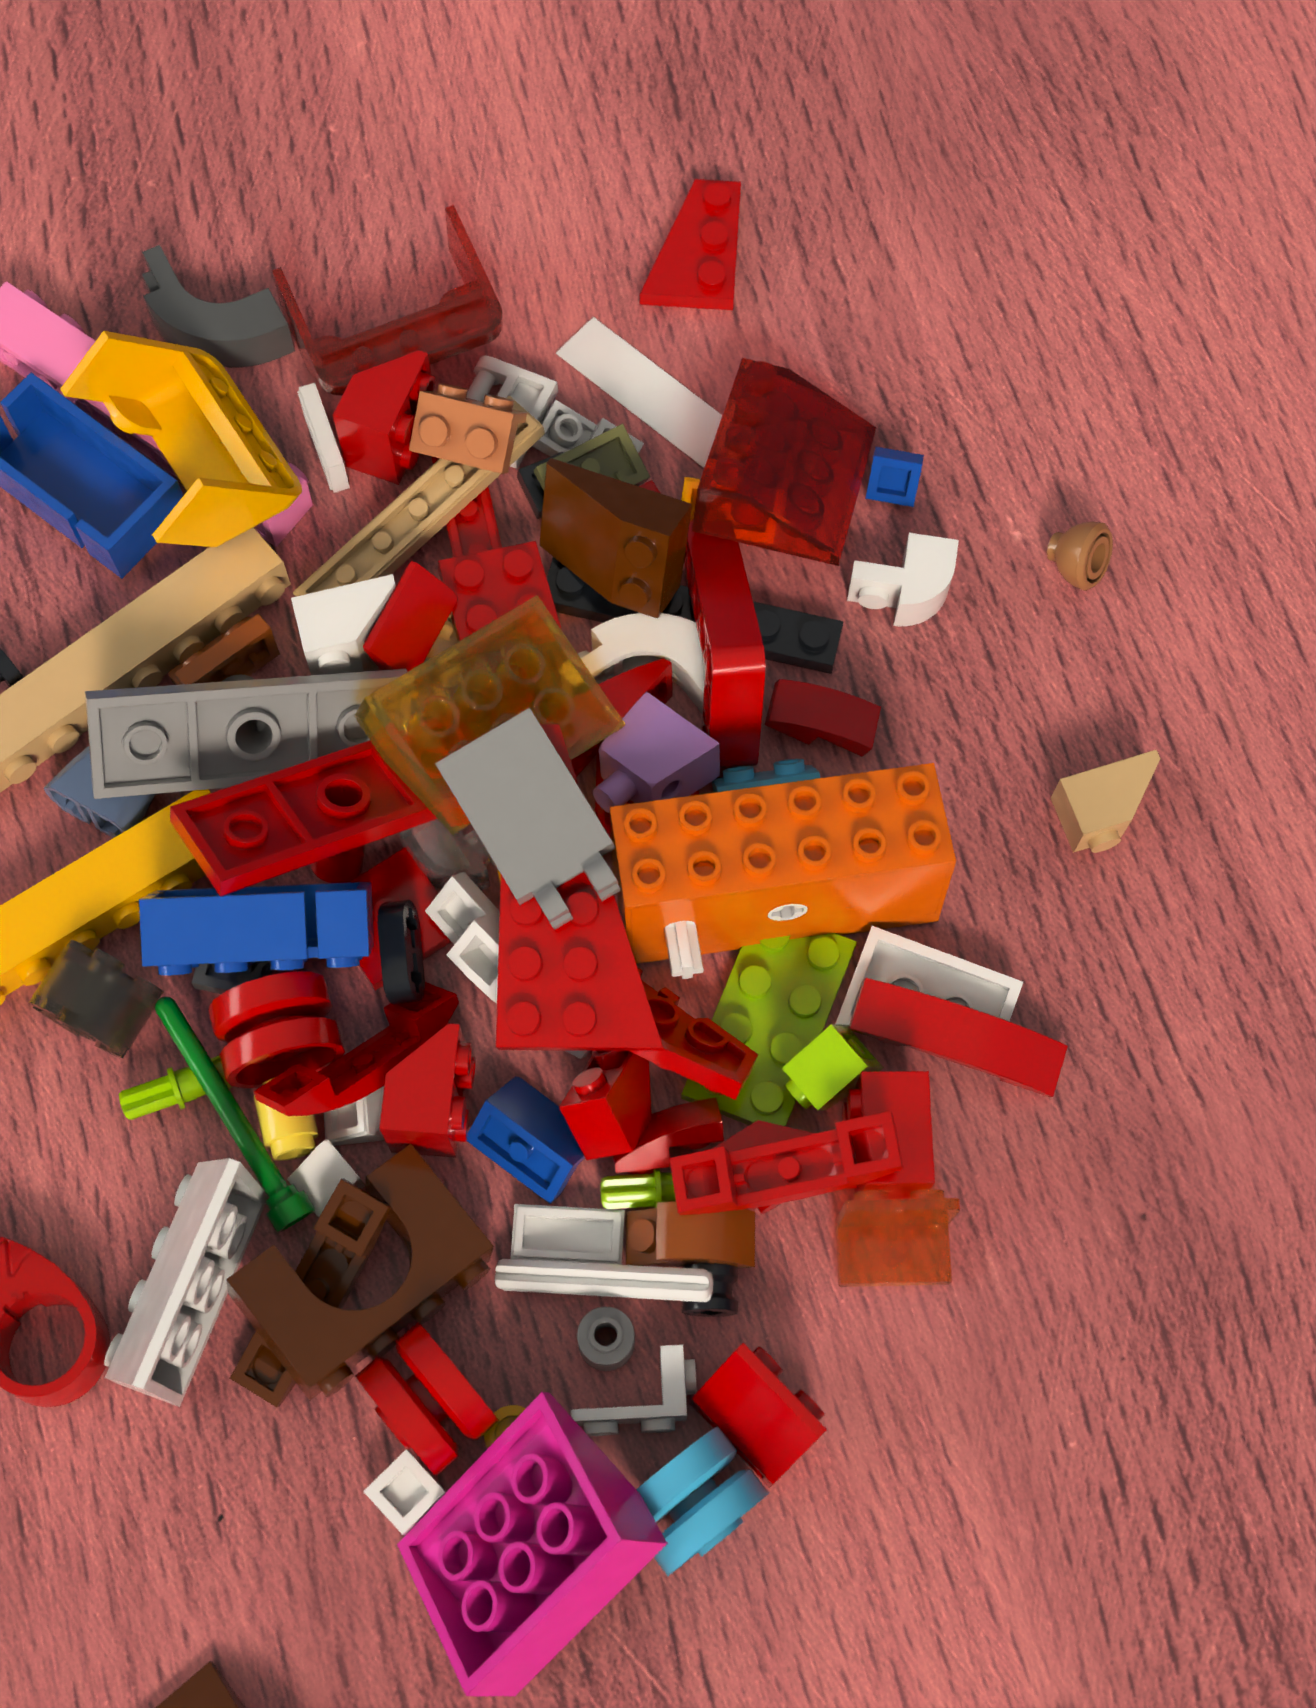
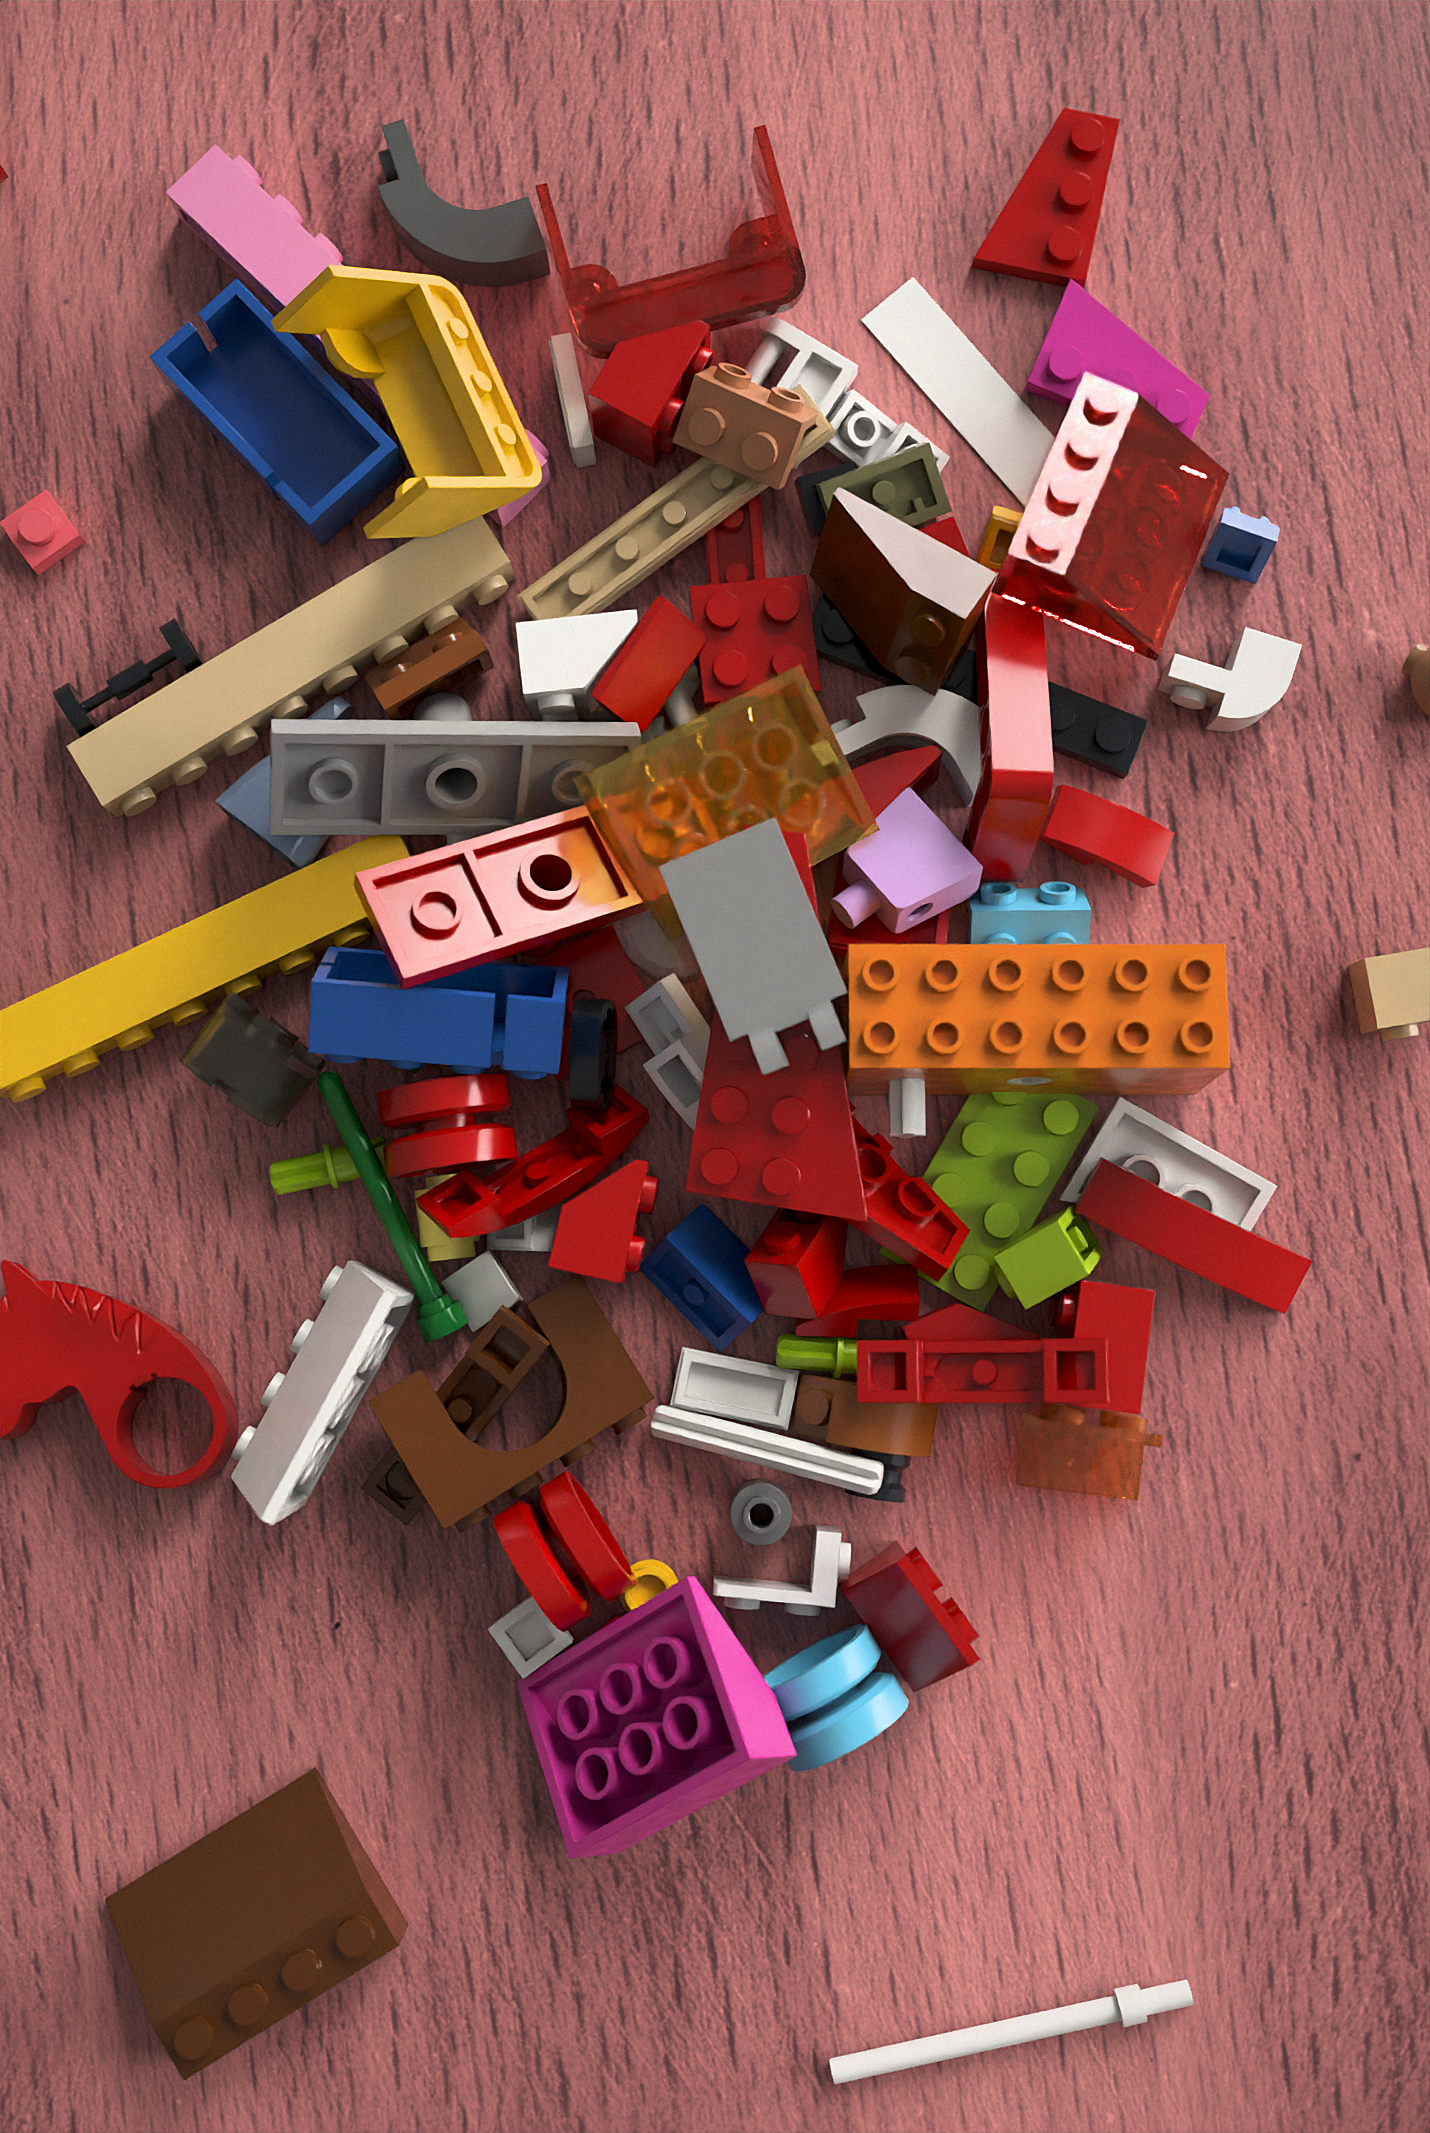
camera: 10 degrees right, 15 degrees up
(743, 336) = (1099, 343): none -> dark pink wing

